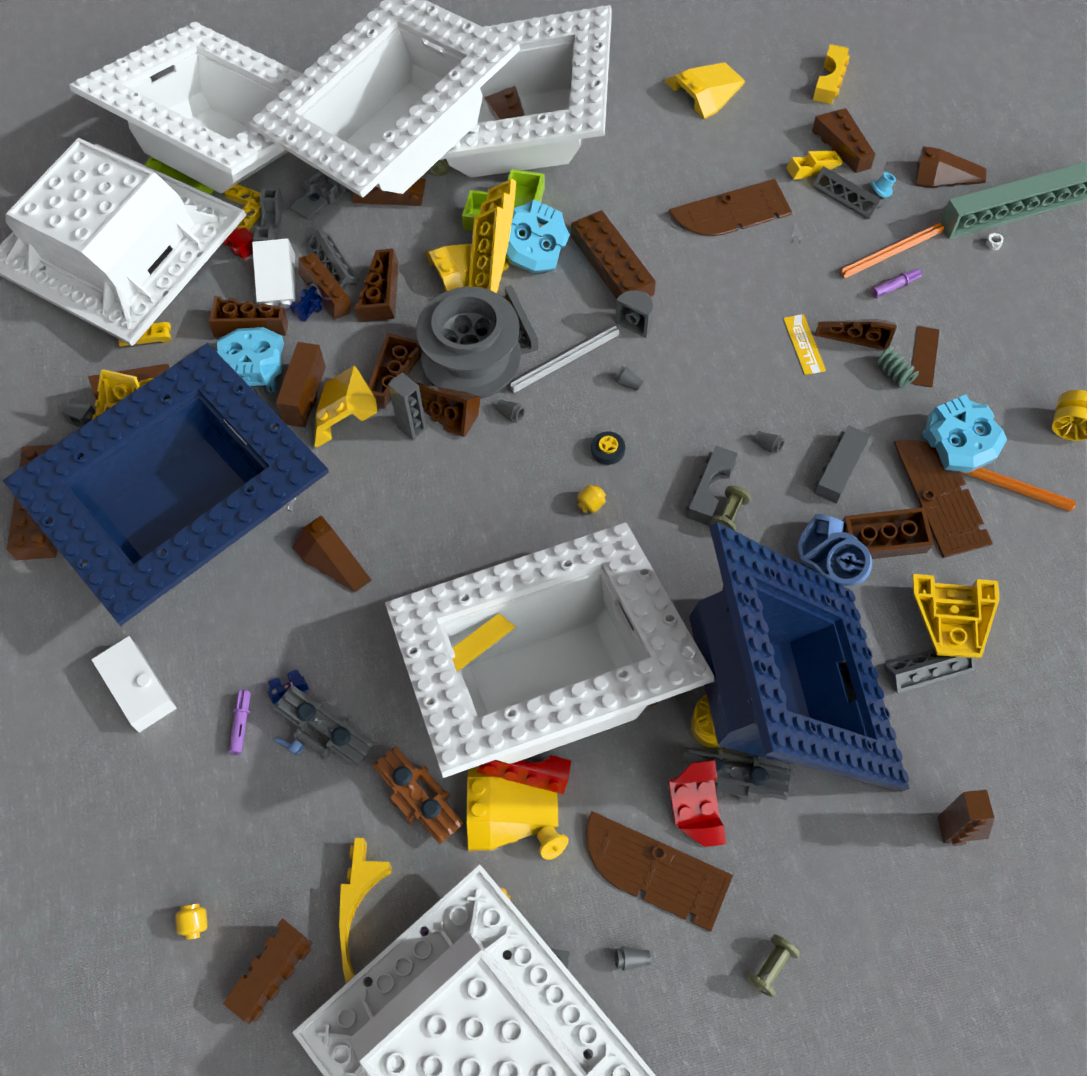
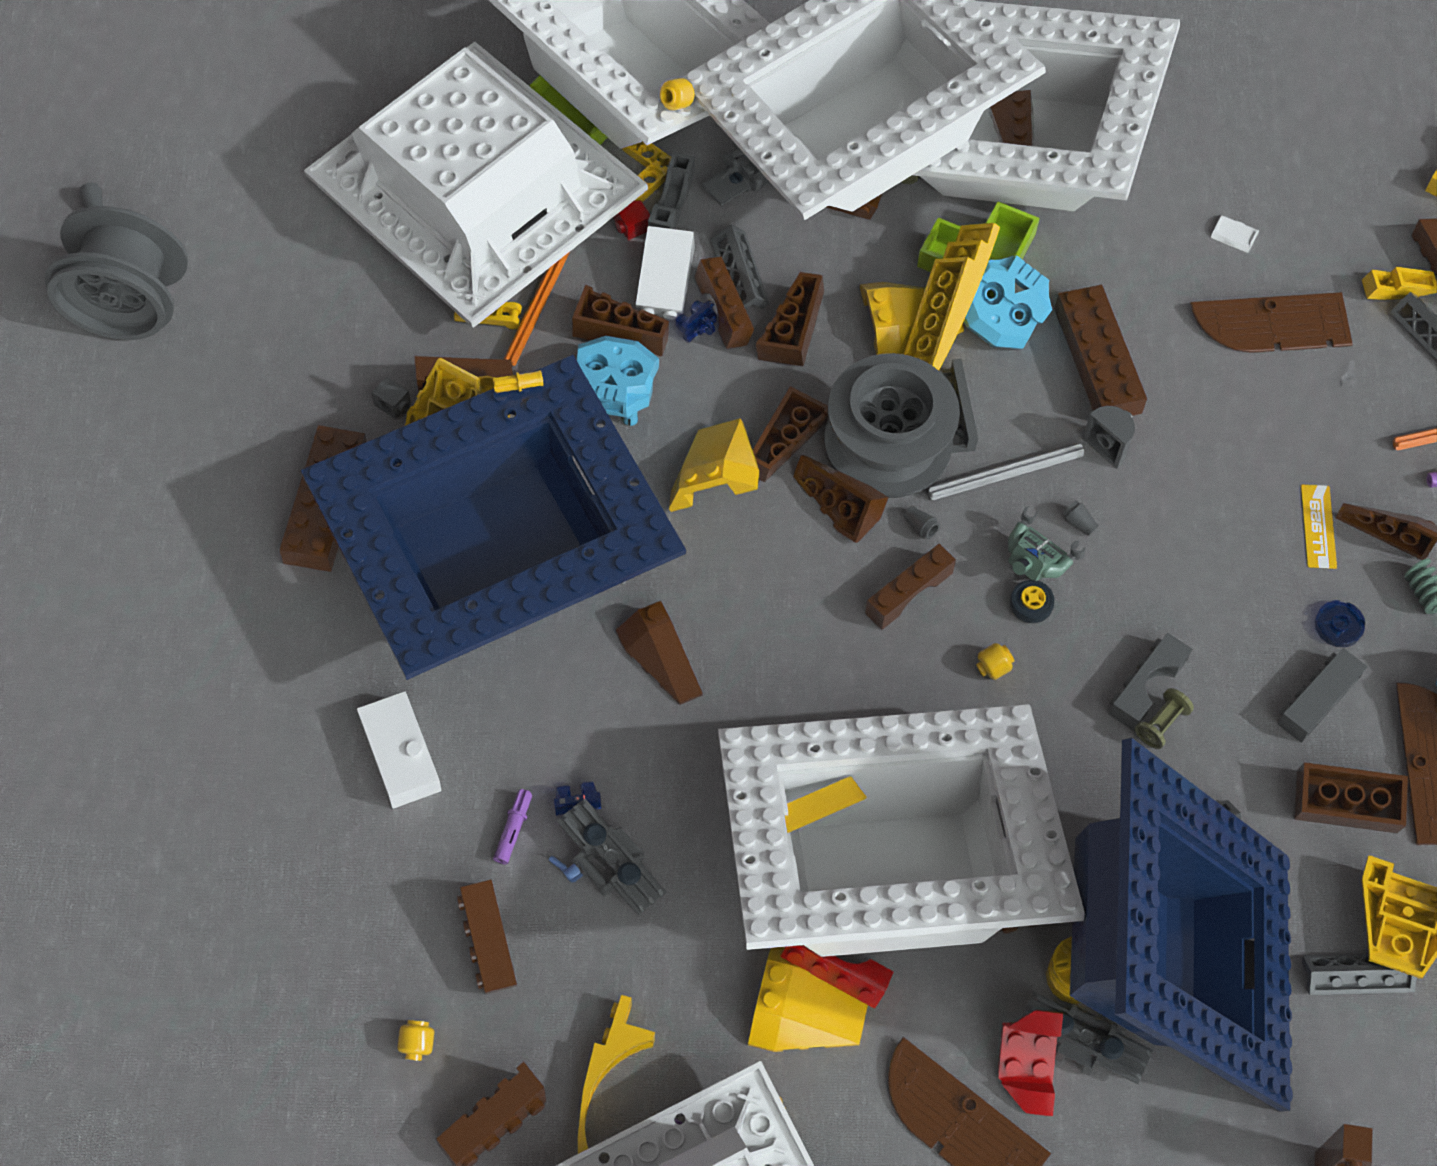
camera: 10 degrees right, 0 degrees up
(166, 371) = (518, 381): none -> yellow axle
(182, 319) = (533, 311): none -> orange axle
(234, 818) = (488, 937): none -> reddish brown wedge
(247, 133) = (677, 94): none -> yellow head
(301, 384) = (669, 427): reddish brown brick -> none
(407, 406) = (796, 490): dark grey brick -> none
(412, 800) = (696, 969): dark orange piece -> none
(501, 471) = (893, 598): none -> reddish brown arch
(551, 842) = (847, 1060): yellow piece -> none
(602, 412) = (1037, 555): none -> sand green torso
(687, 157) = (1234, 233): none -> white piece
(708, 85) = (1288, 139): yellow wedge -> none
(771, 442) = (1241, 645): dark grey cone -> none
(834, 552) = (1276, 803): medium blue piece -> none
(840, 409) = (1340, 623): none -> clear blue tile

